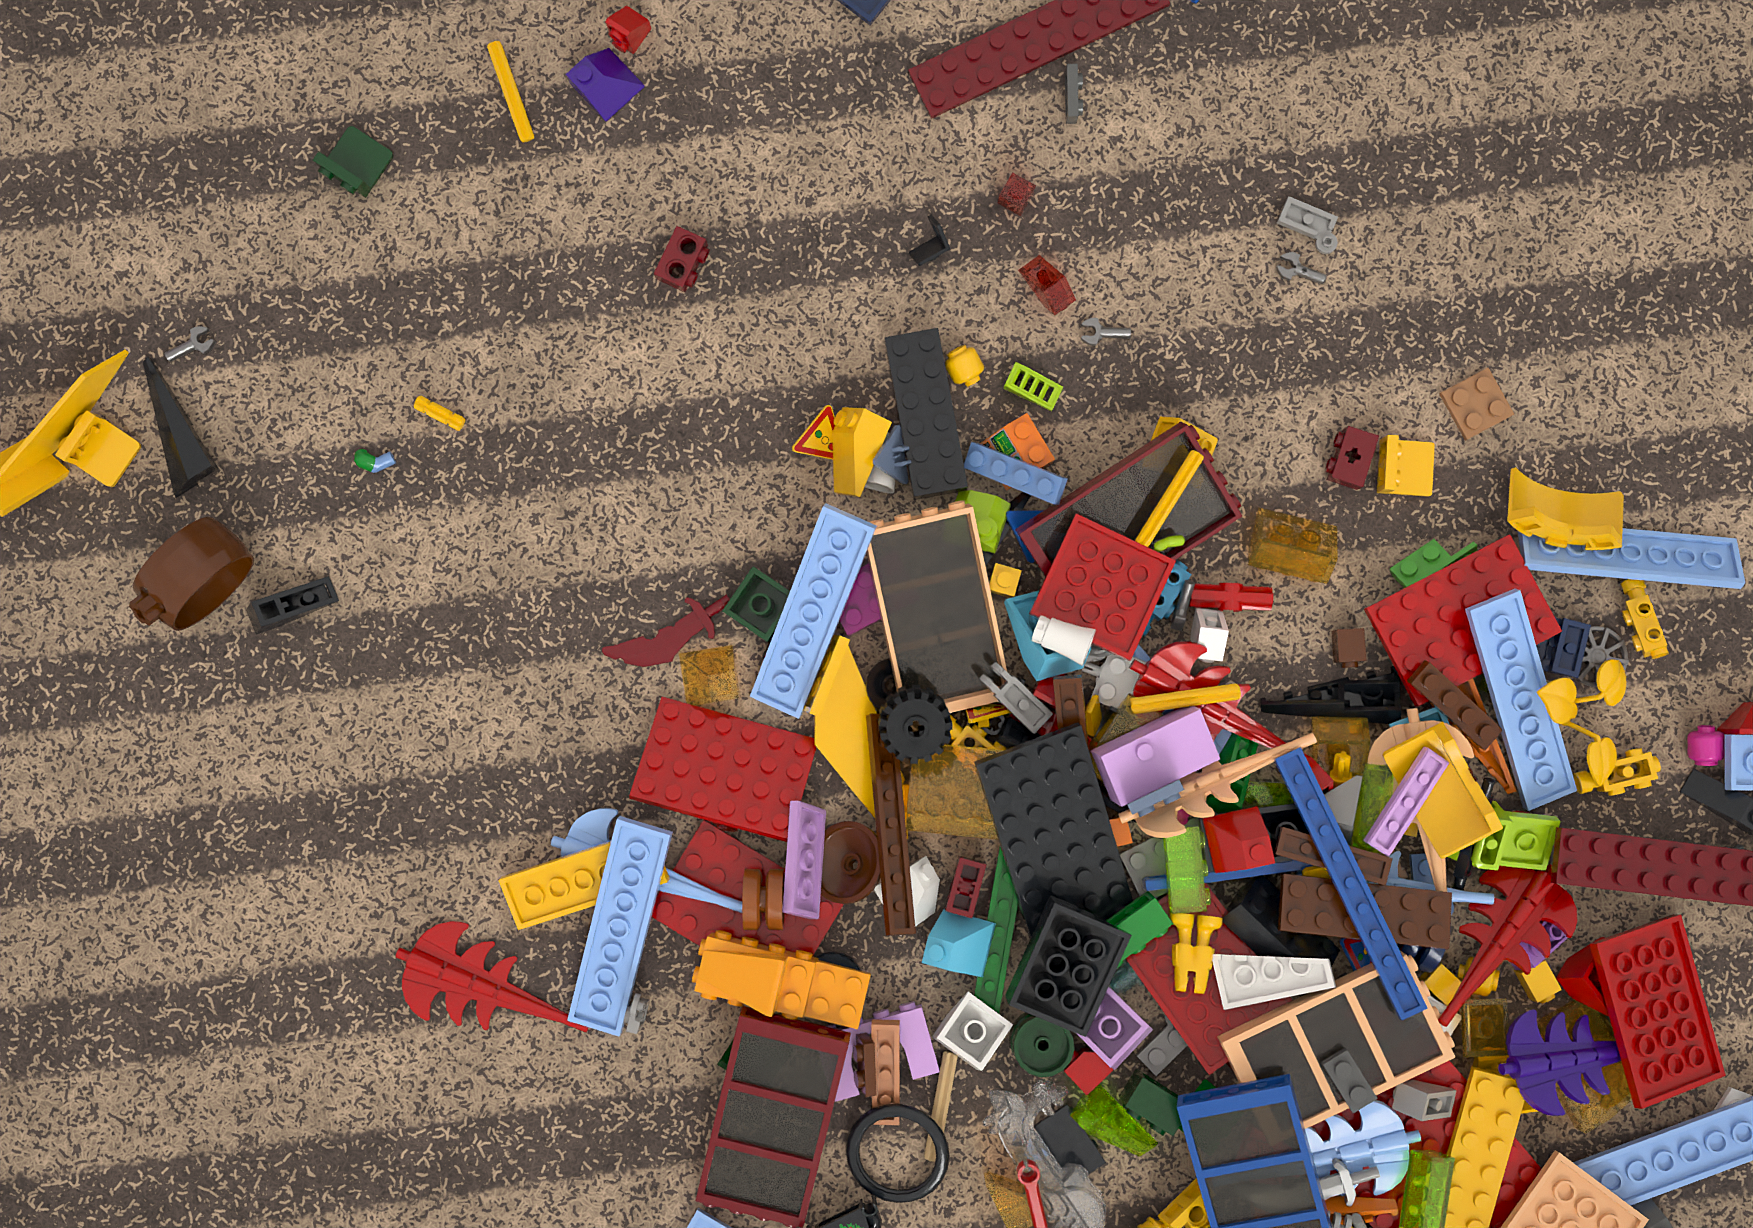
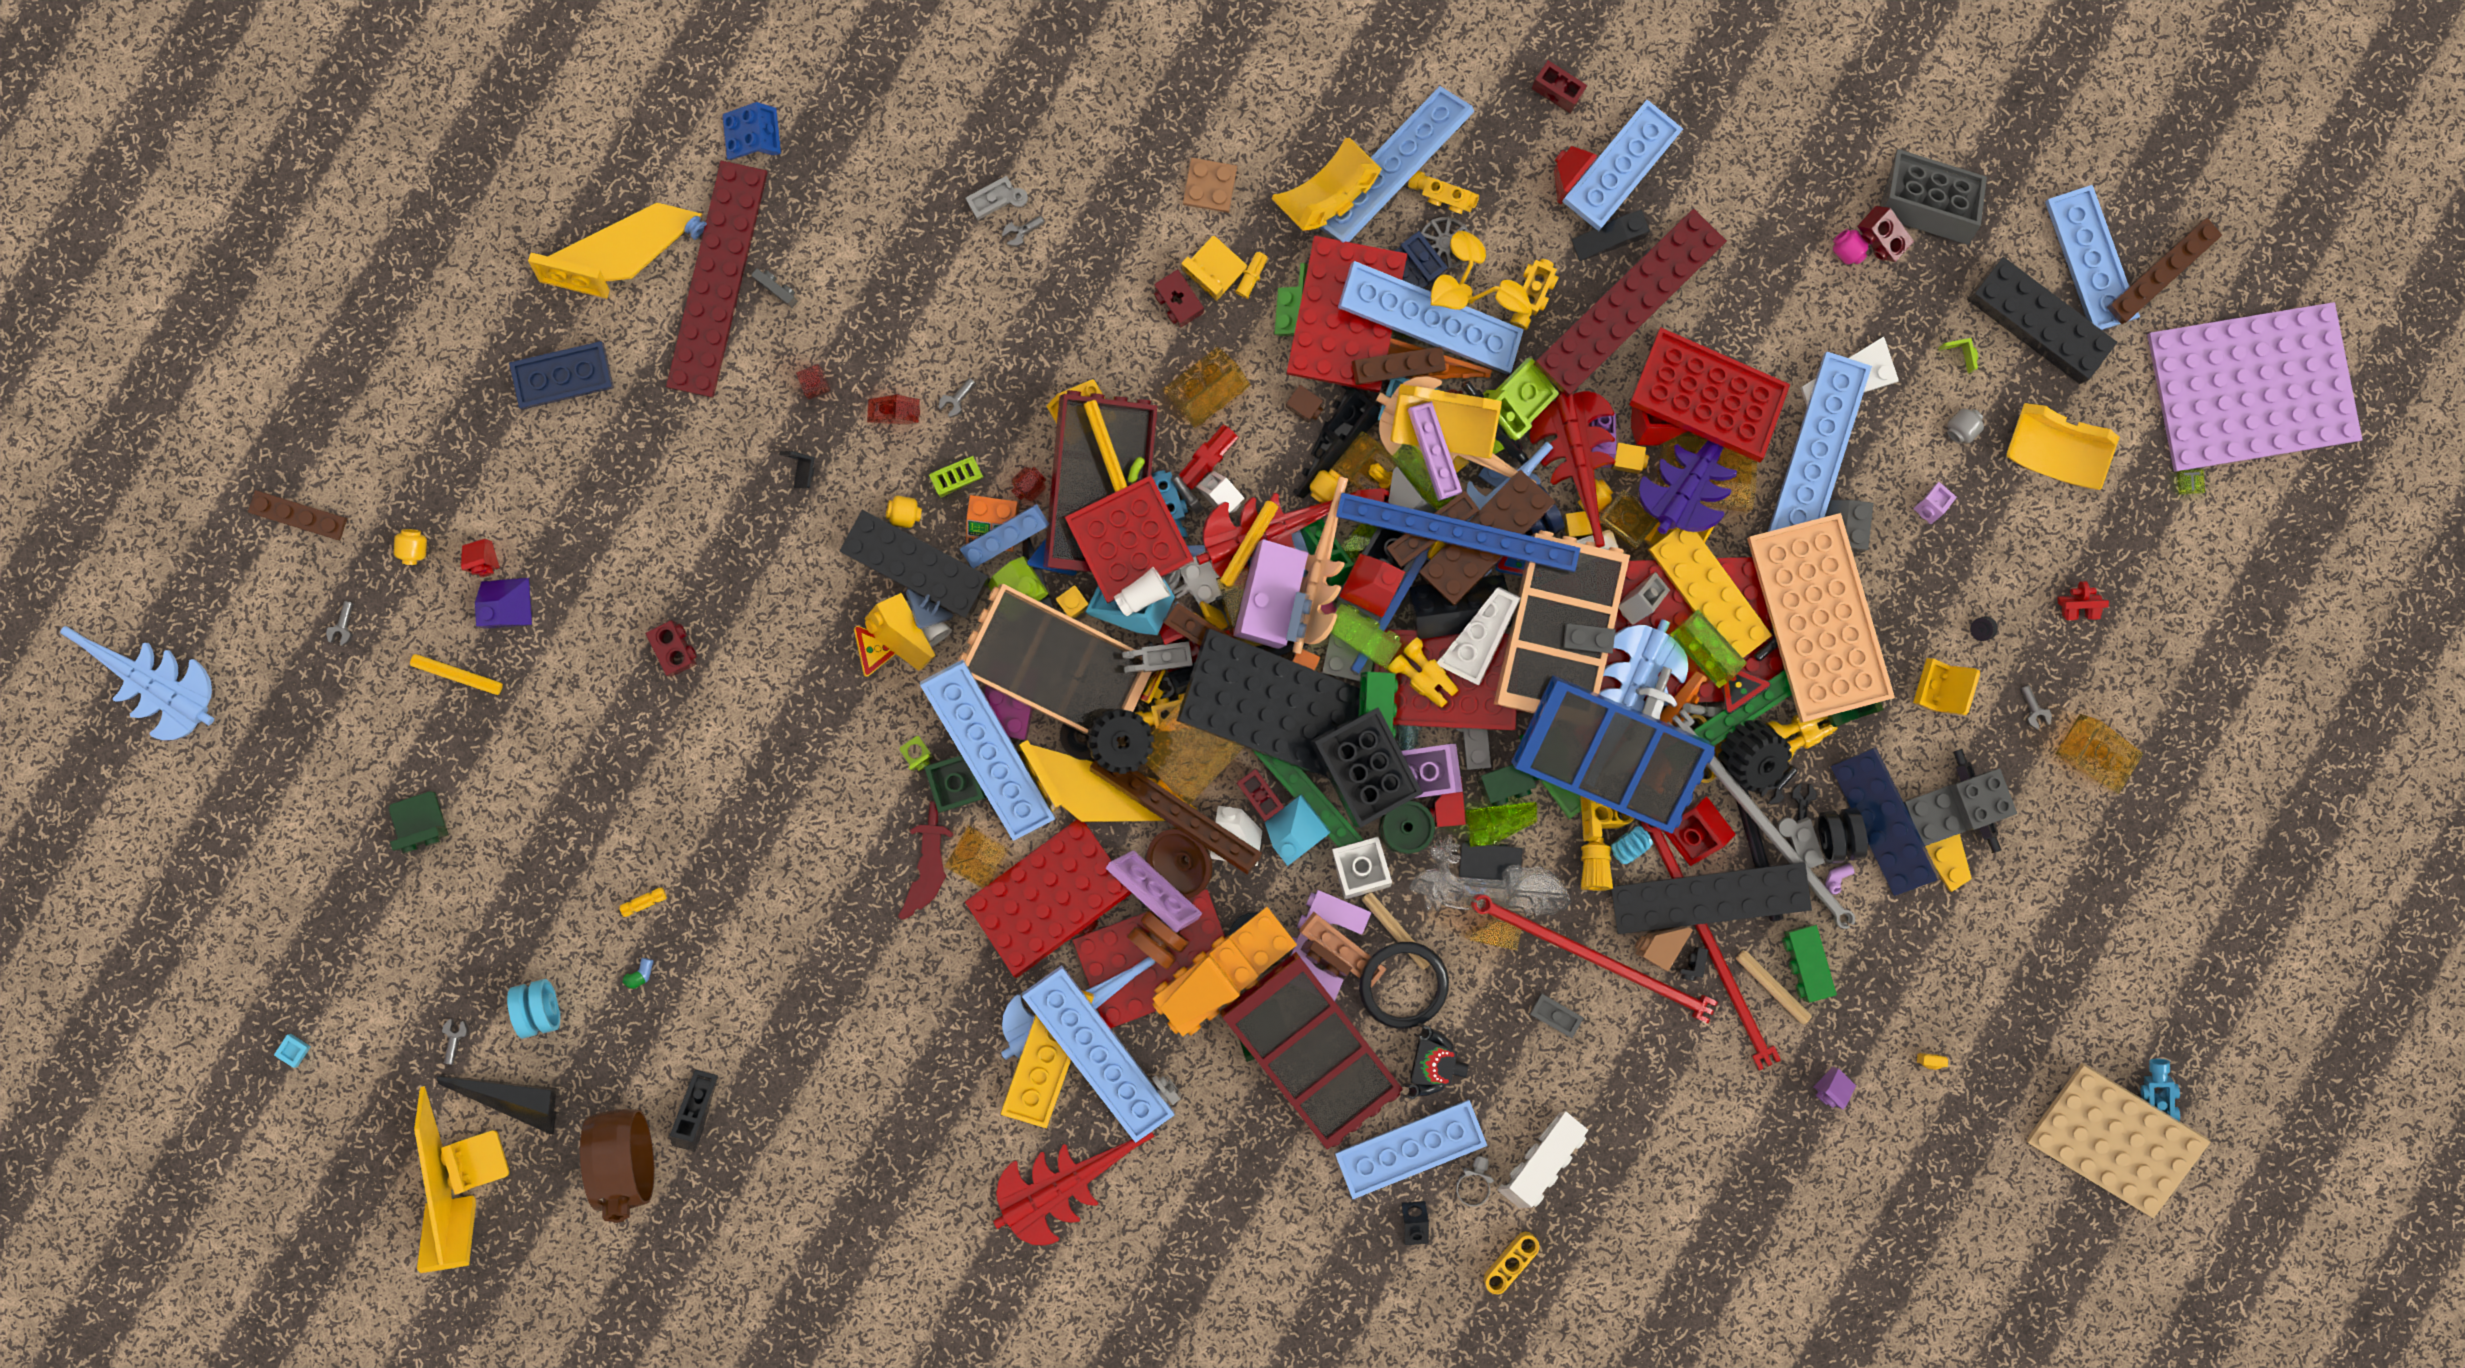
camera: 55 degrees left, 0 degrees up
(73, 214) = (292, 1050): none -> medium azure plate
(270, 393) = (533, 1008): none -> medium azure wheel
(756, 559) = (920, 762): none -> lime bracket
(1078, 456) = (1028, 484): none -> clear red head
(1181, 1169) = (1567, 800): none -> bright green tile
(1290, 724) = (1324, 485): none -> yellow head
(1426, 505) = (1251, 275): none -> yellow axle
(1706, 745) = (1561, 219): dark pink head -> none

